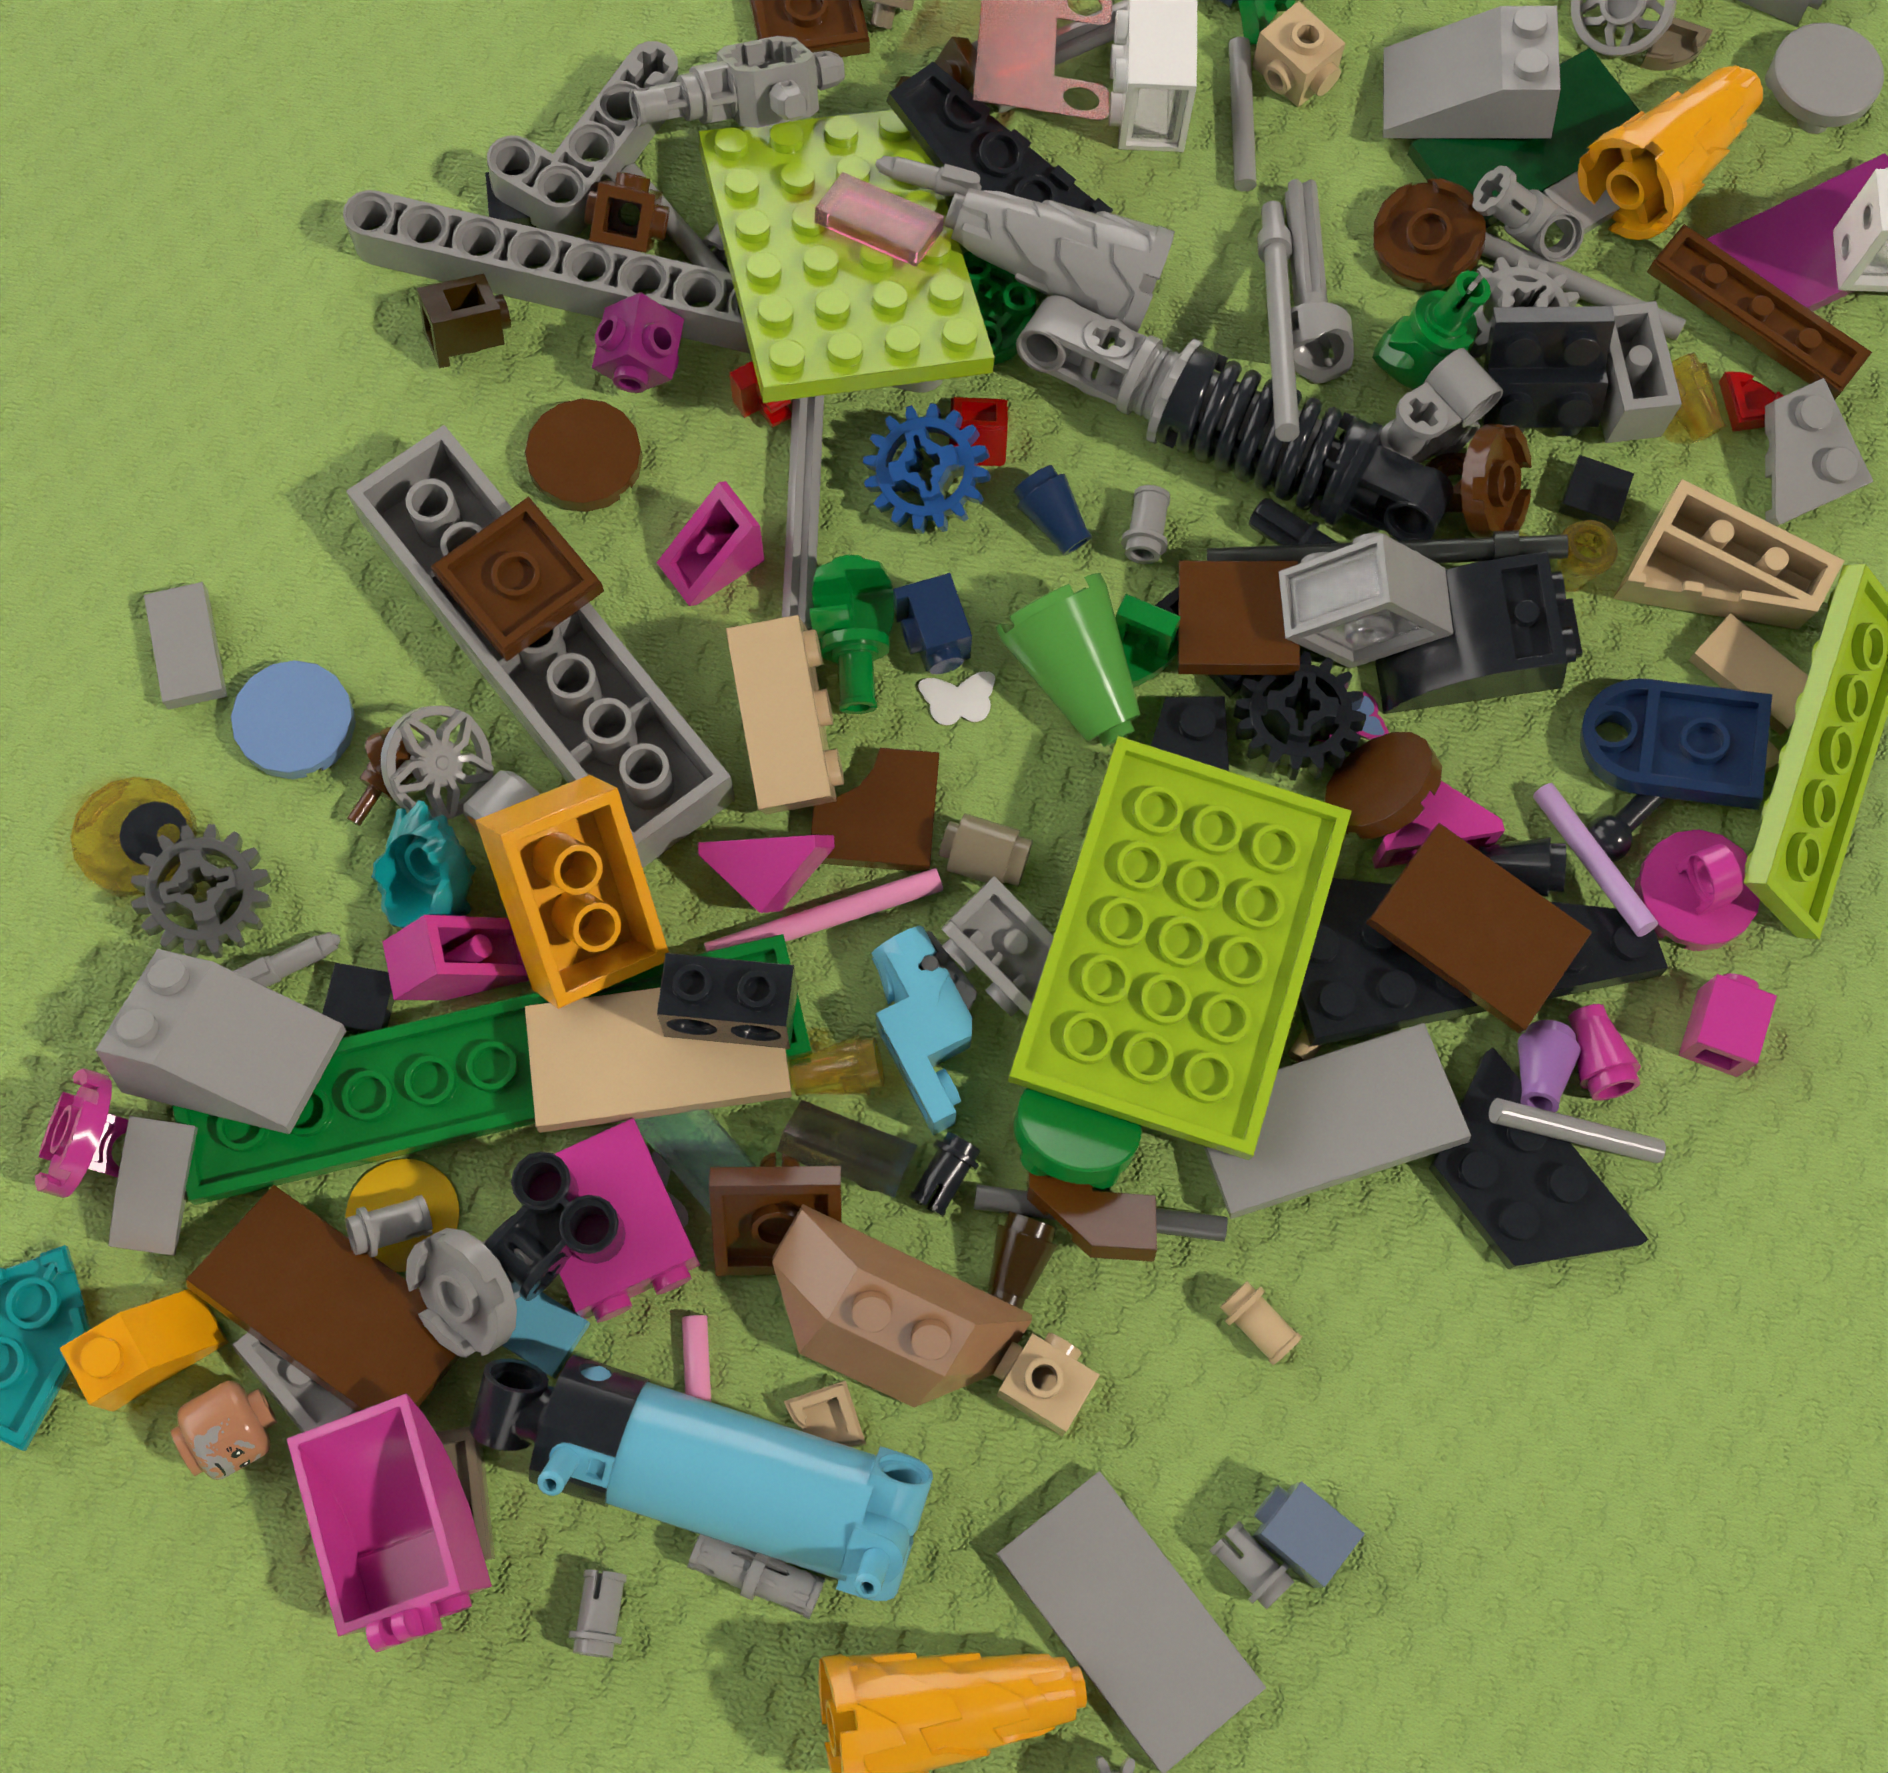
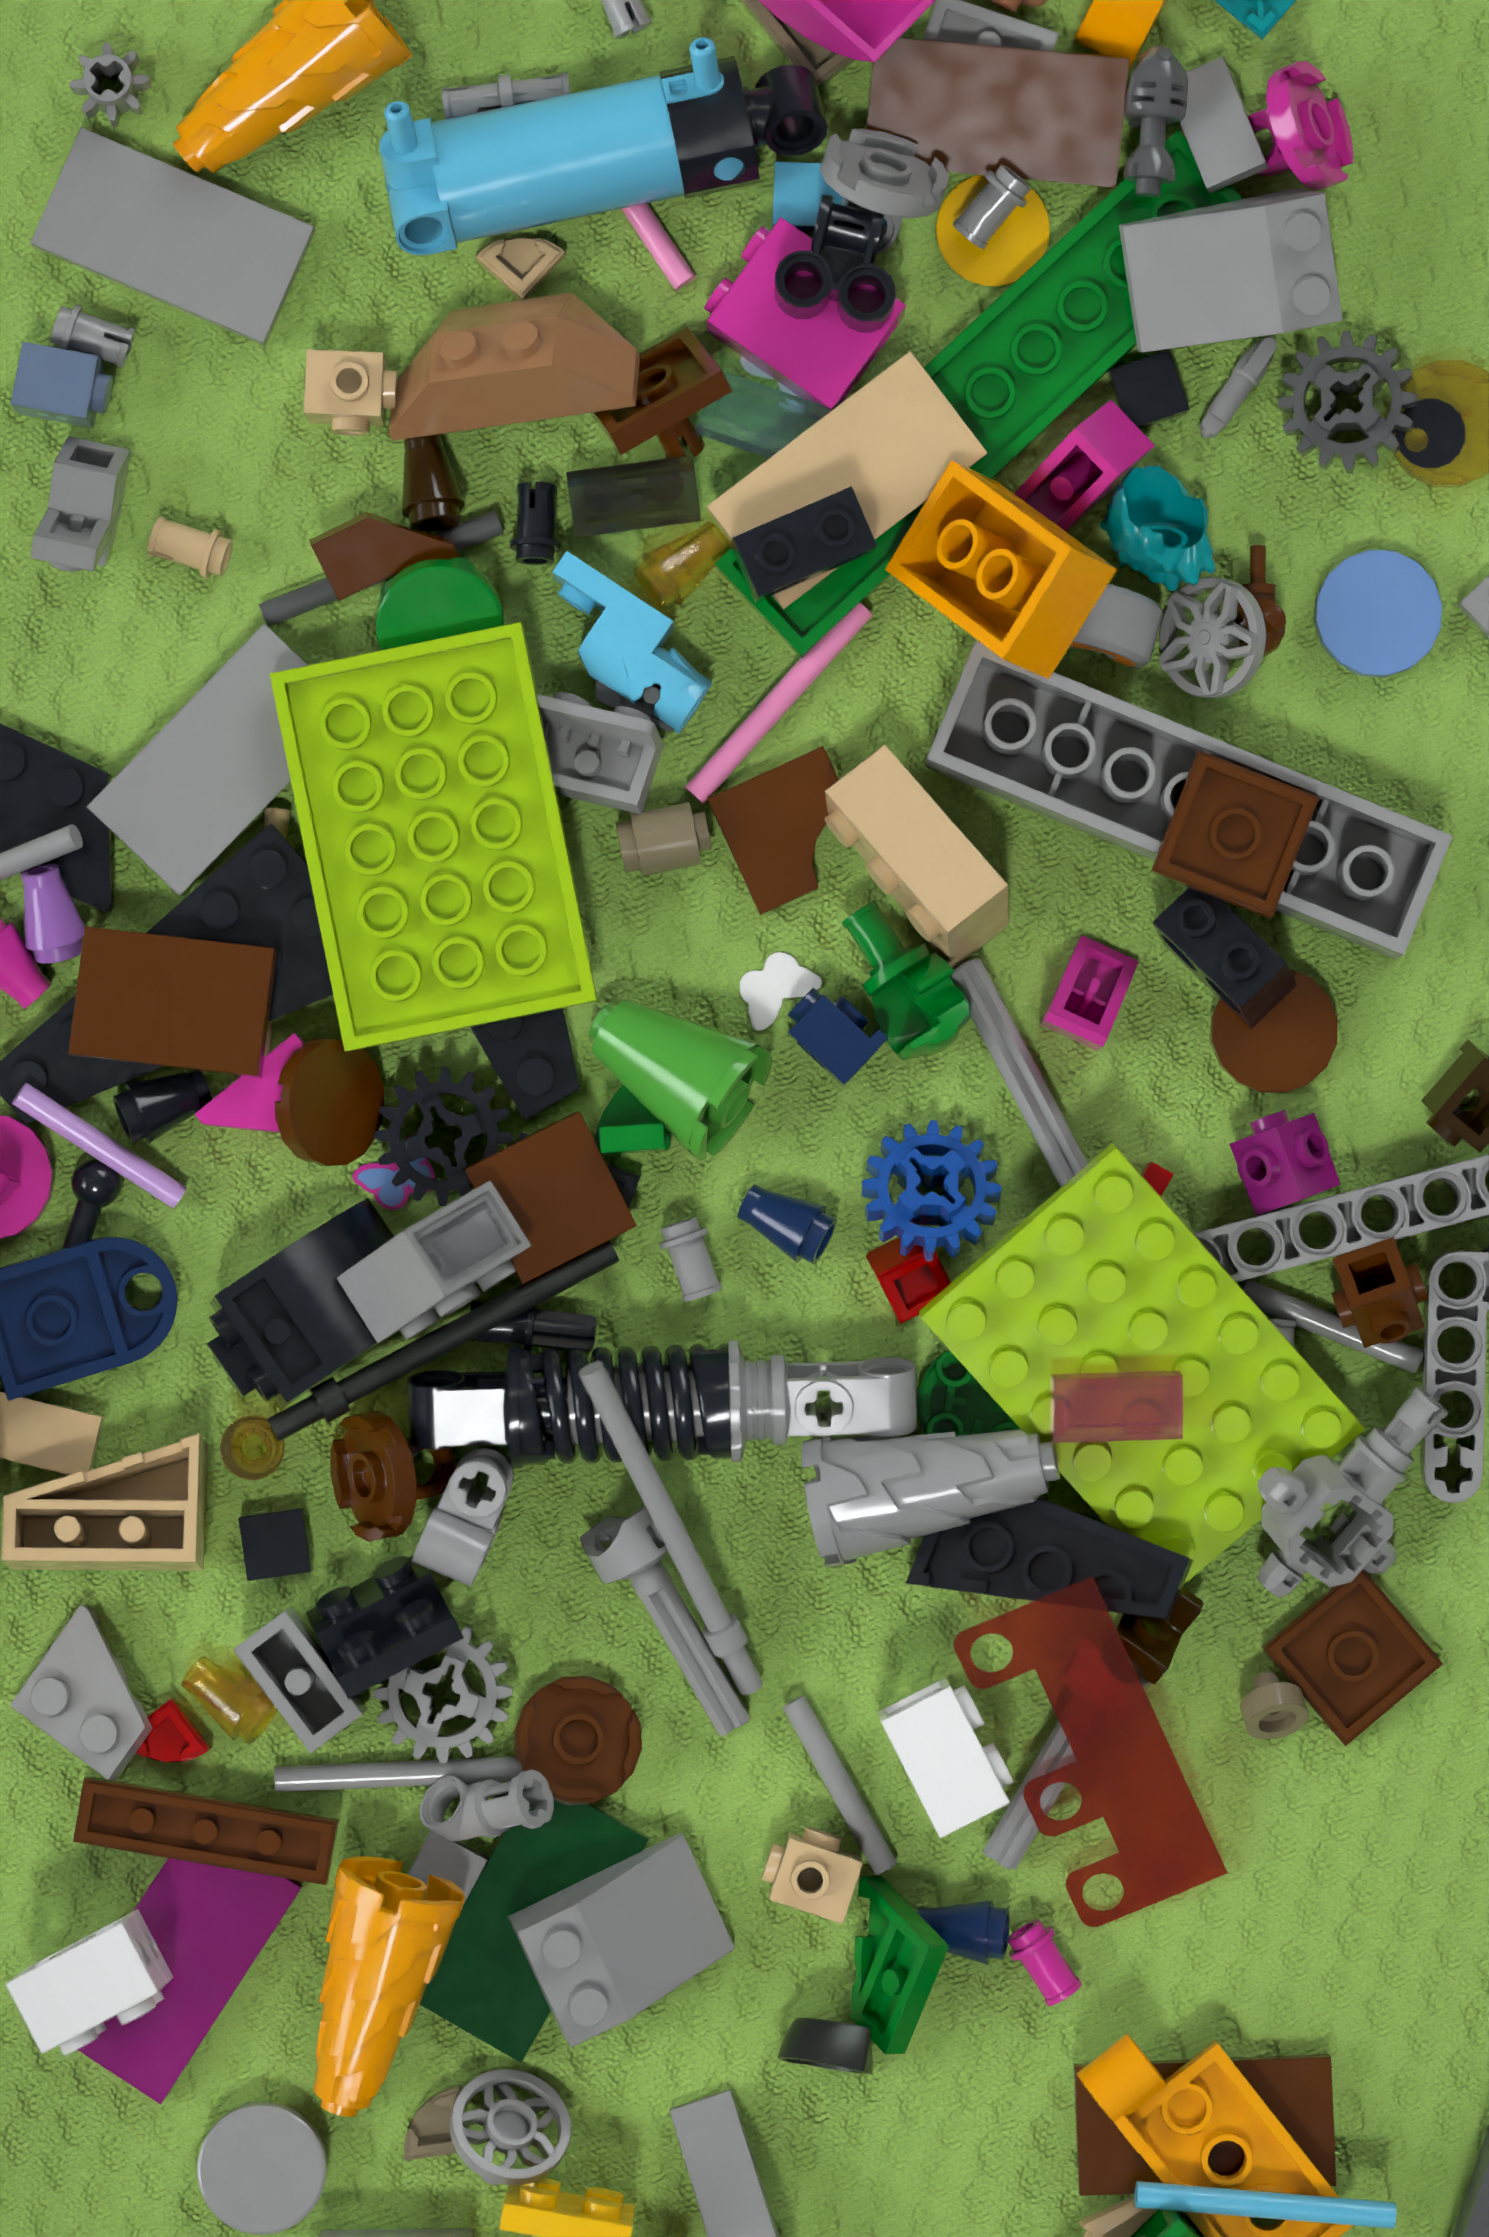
camera: 155 degrees right, 15 degrees up
(184, 1232) = (1152, 101): none -> dark grey piece
(585, 507) = (1225, 955): none -> black brick
(767, 868) = (858, 709): dark pink slope -> none
(942, 180) = (1086, 1497): light grey piece -> none
(1344, 1405) = (82, 506): none -> light grey brick
(1434, 330) = (518, 1598): green piece -> none

